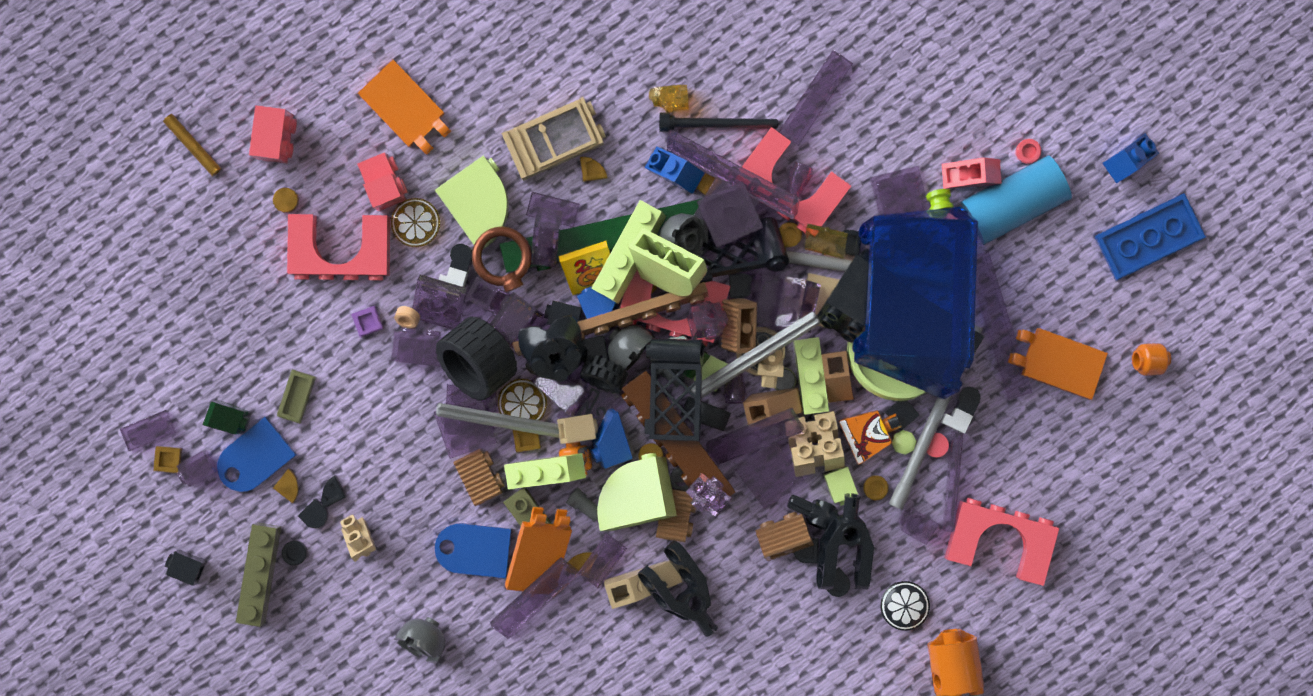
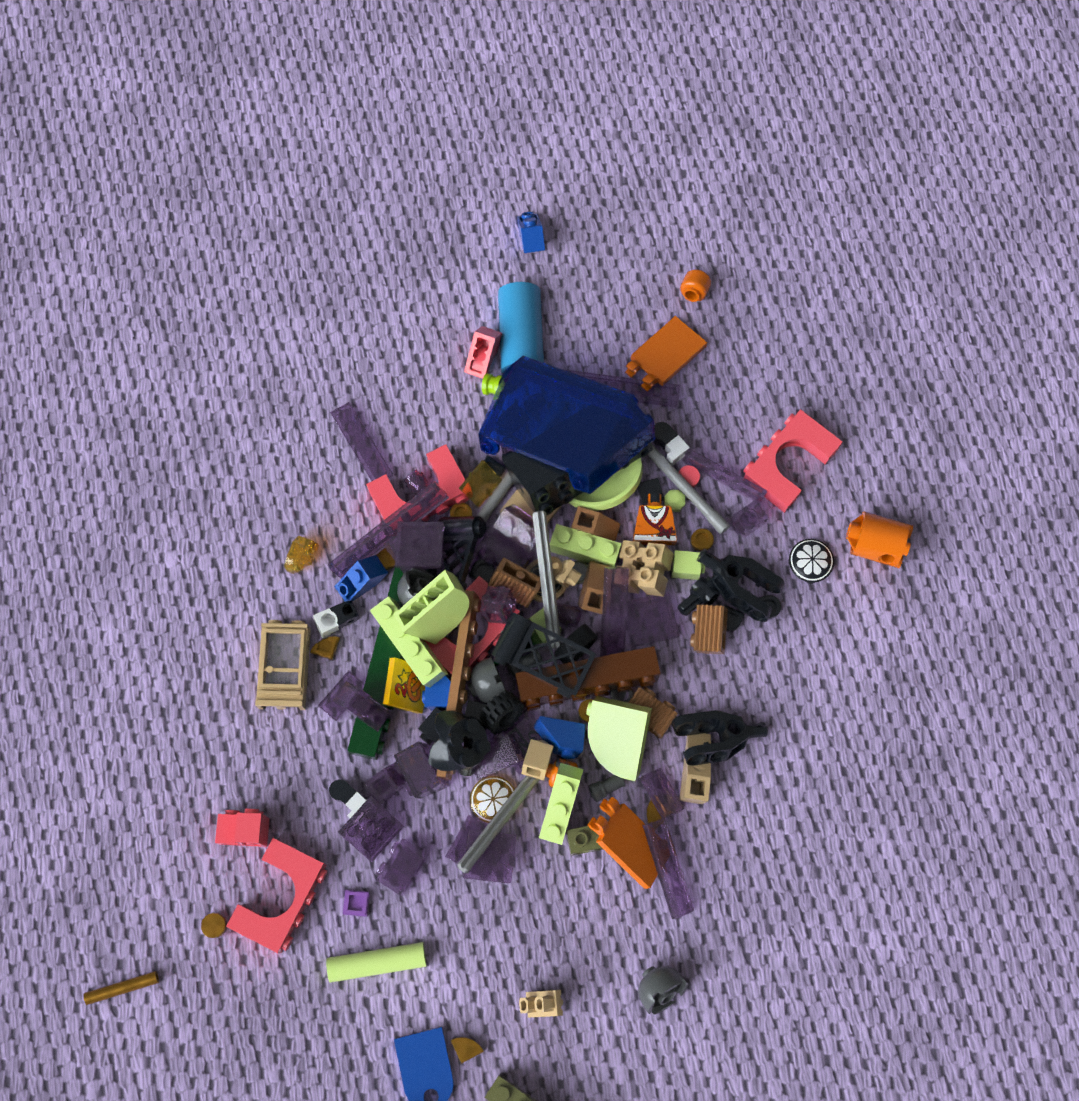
camera: 60 degrees left, 15 degrees down
(226, 417) = (377, 1074): dark green slope -> none
(272, 134) = (149, 906): coral brick -> none
(294, 552) = (529, 1072): black tile -> none
(296, 396) = (390, 1001): olive tile -> none
(314, 514) = (503, 1036): black tile -> none
(324, 366) = (376, 962): none -> yellowish green brick
(332, 492) = (491, 1009): black tile -> none
(404, 106) = (190, 781): orange tile -> none
(407, 317) = (369, 864): light nougat tile -> none
(415, 222) = (292, 818): dish -> none
(476, 198) = (302, 755): yellowish green brick -> none
(476, 358) = (434, 815): black tyre -> none
(476, 551) = (602, 901): blue tile -> none
(479, 477) = (538, 867): medium nougat brick -> none
(512, 280) = (383, 753): copper piece -> none
(526, 441) = (526, 812): pearl gold tile -> none
(624, 165) = (335, 618): none -> leg
(669, 122) = (320, 565): black piece -> none
(705, 491) = (646, 666): clear purple brick -> none
(899, 191) = (468, 413): clear purple plate -> none
(1028, 151) = (487, 304): coral tile -> none
(1150, 236) = (598, 247): blue tile -> none

